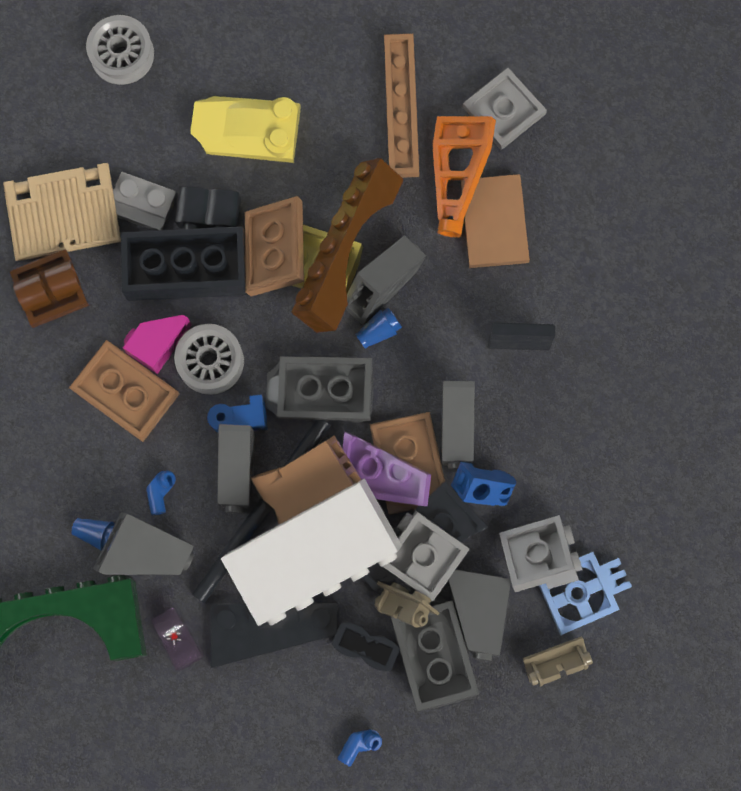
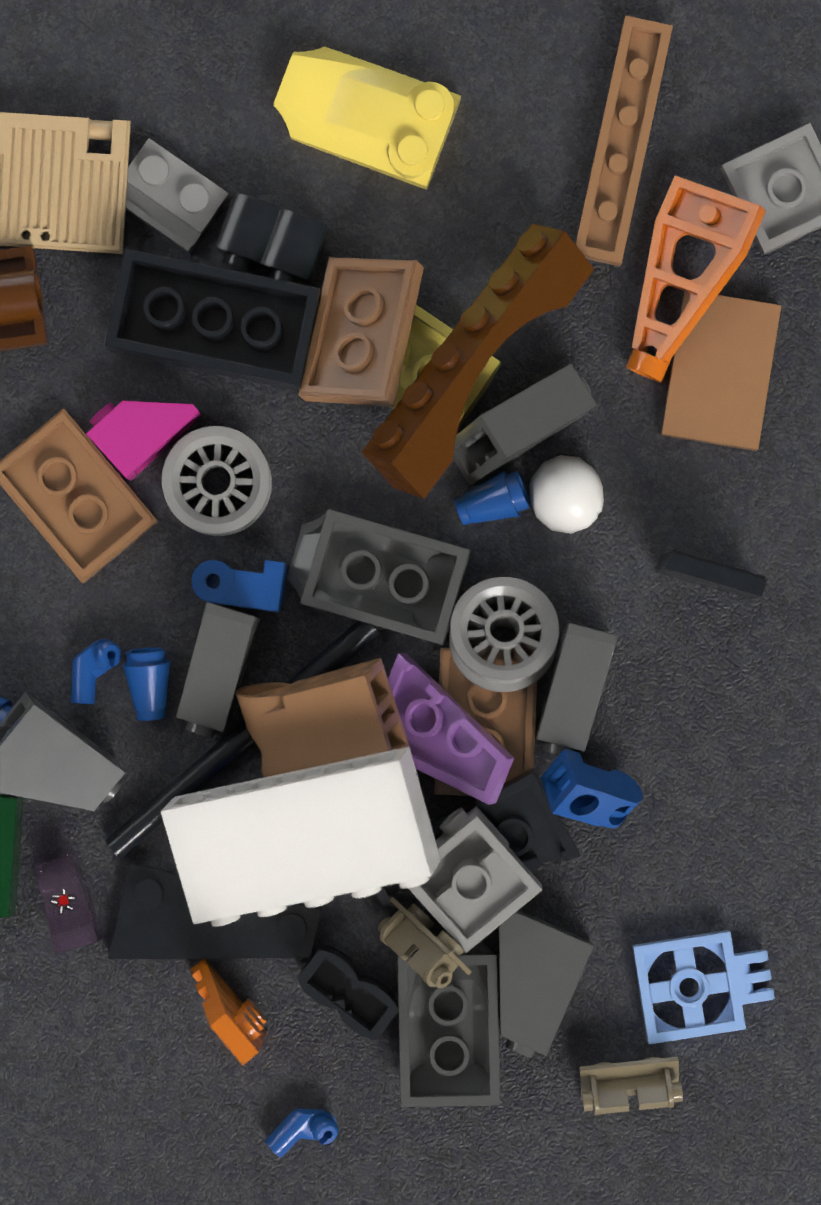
camera: 15 degrees right, 10 degrees up
(195, 489) = (148, 680): none -> blue cone
(301, 680) = (232, 1020): none -> orange wing
(387, 404) = (519, 595): none -> light grey wheel
(422, 315) = (566, 494): none -> white hair
(540, 554) = (648, 919): light grey plate -> none

